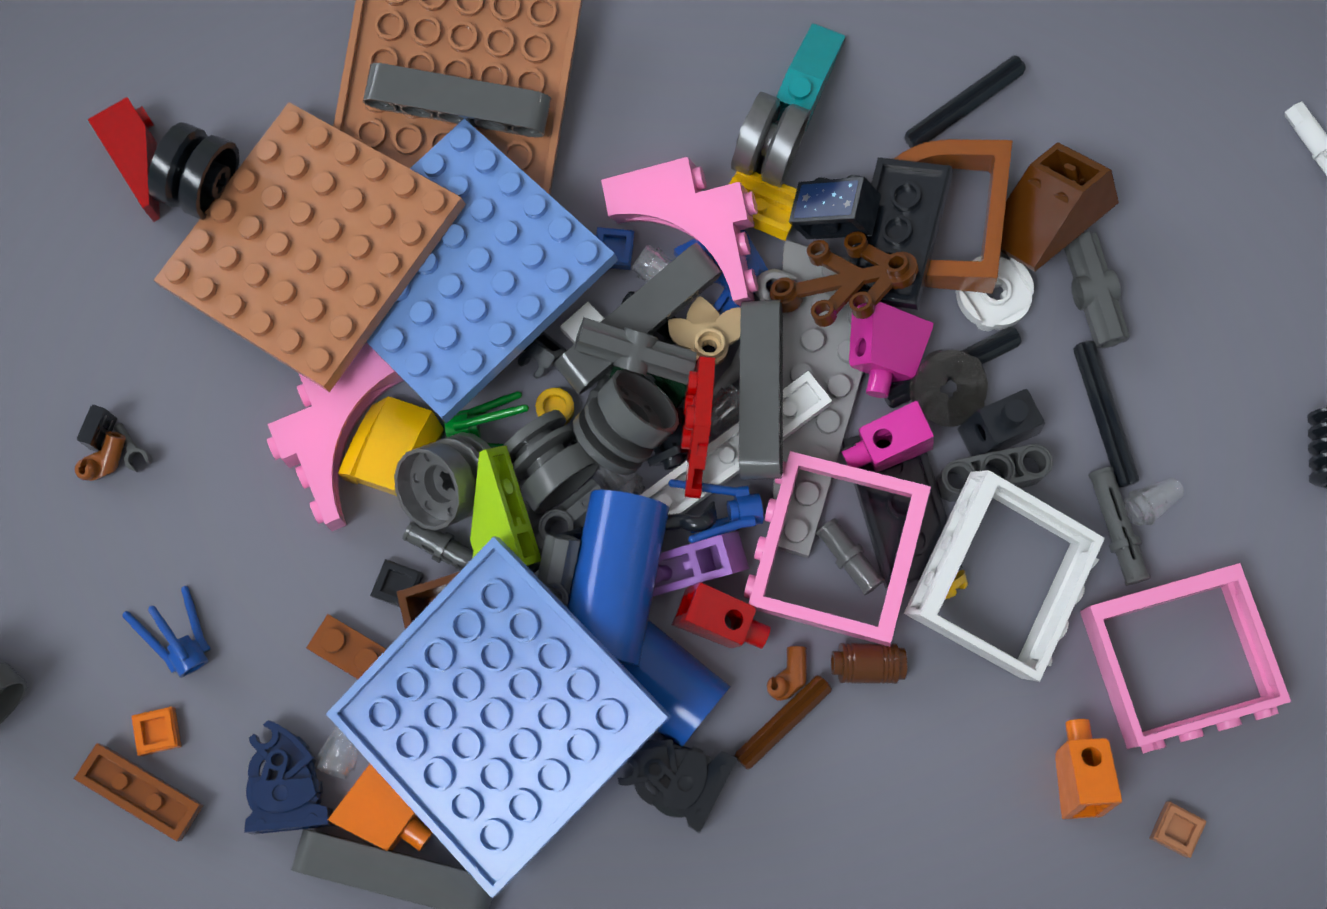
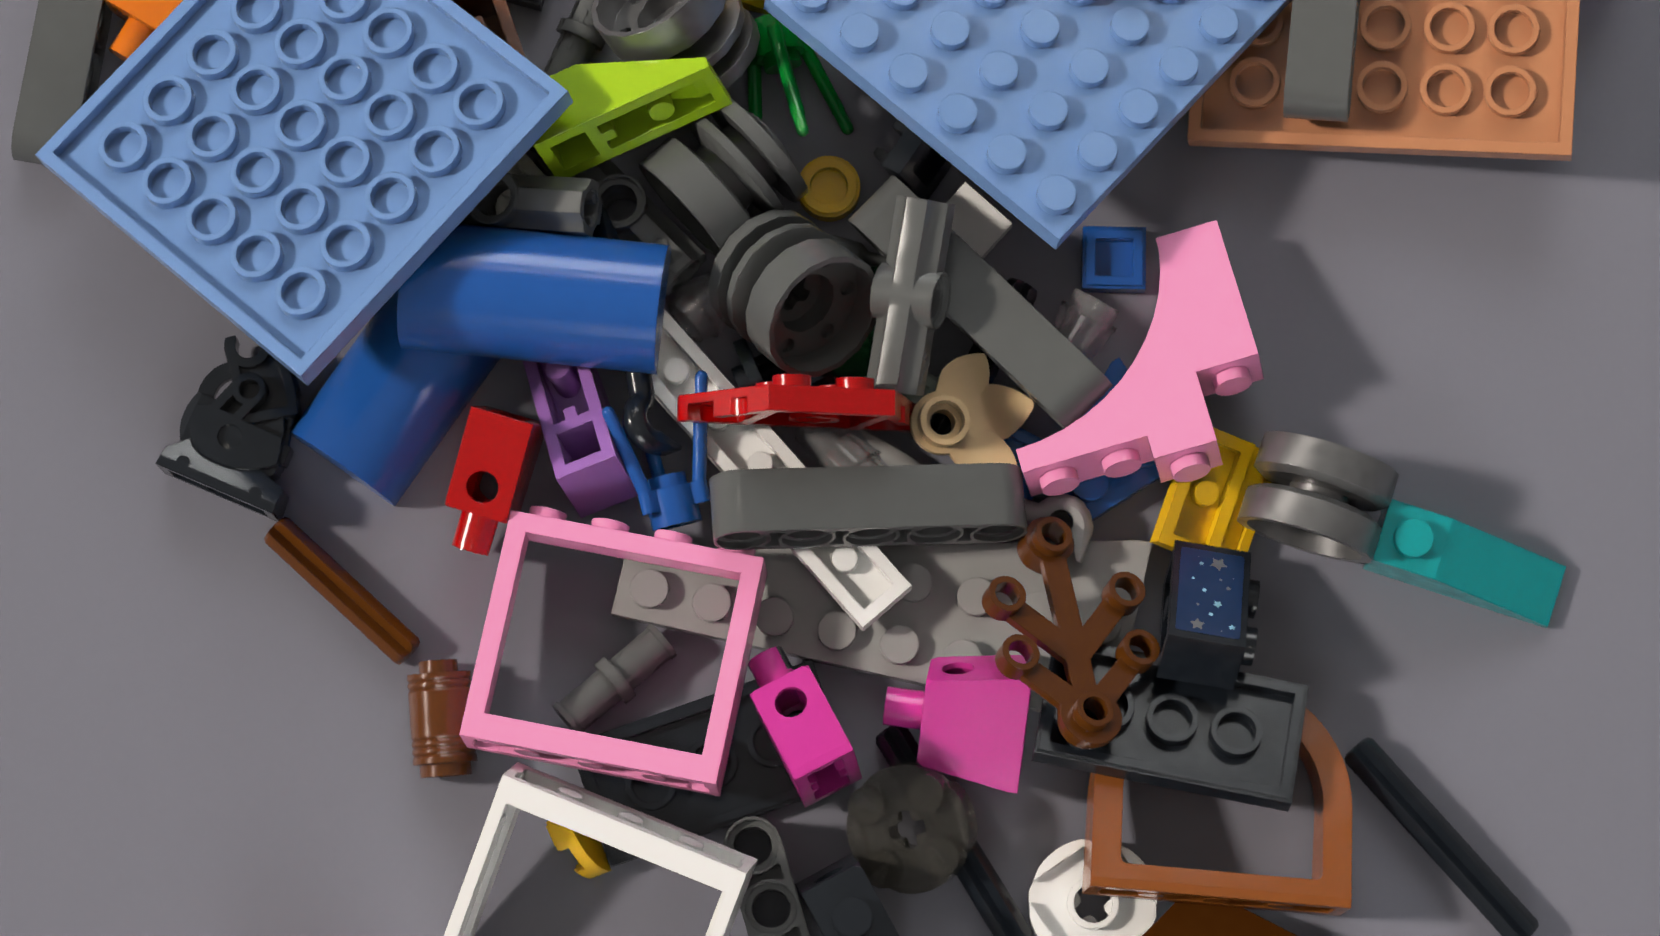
camera: 90 degrees right, 5 degrees up
(792, 678) = (412, 600): dark orange arm -> none

